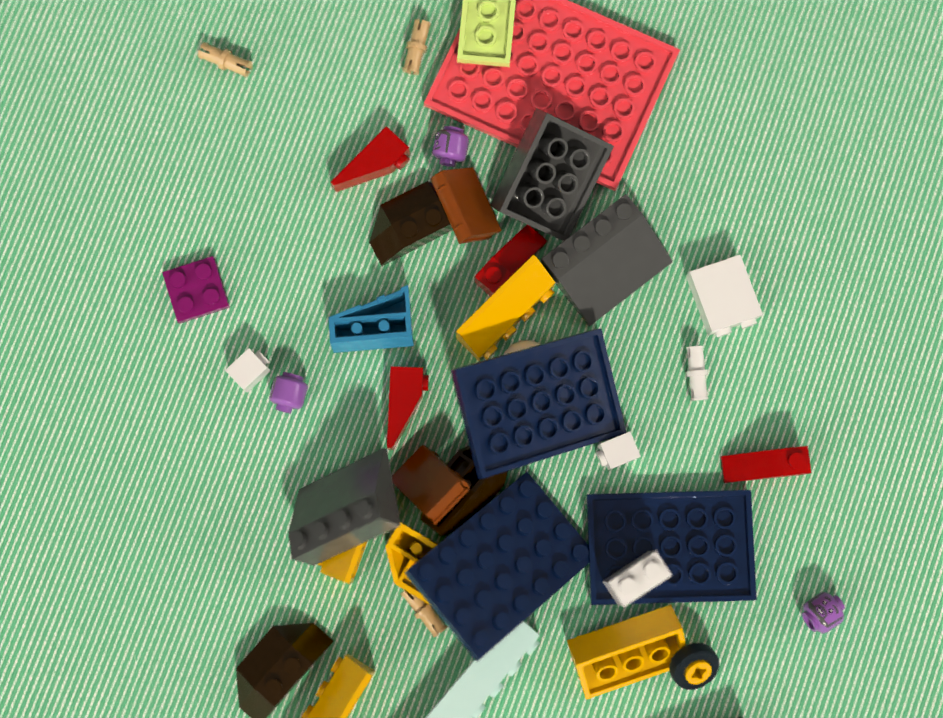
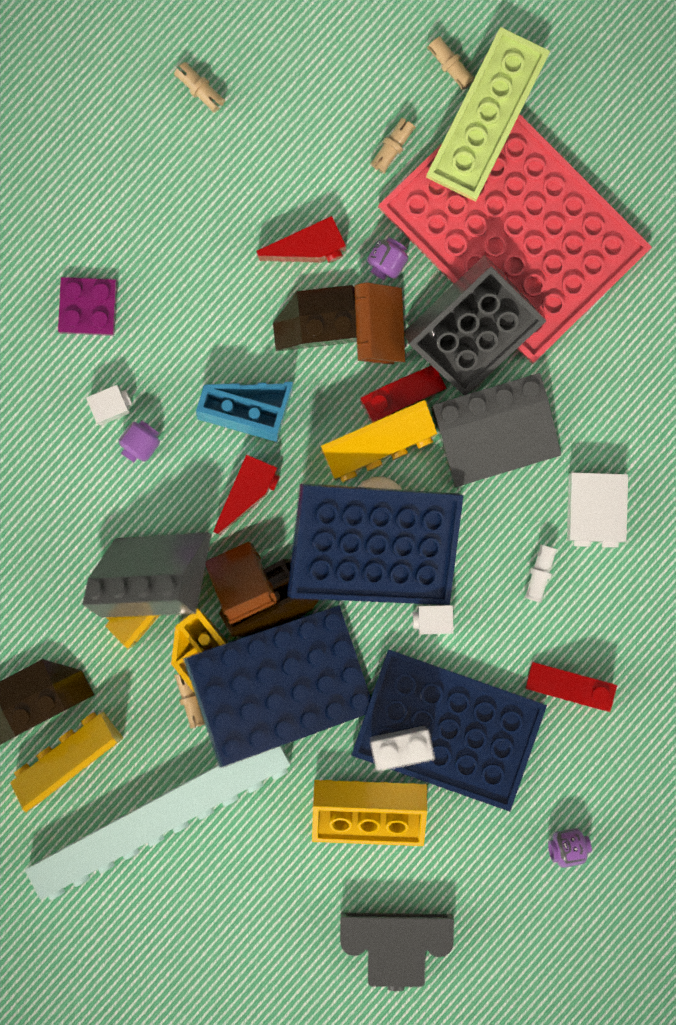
camera: 25 degrees right, 5 degrees up
(694, 666) = (425, 850): black wheel -> none

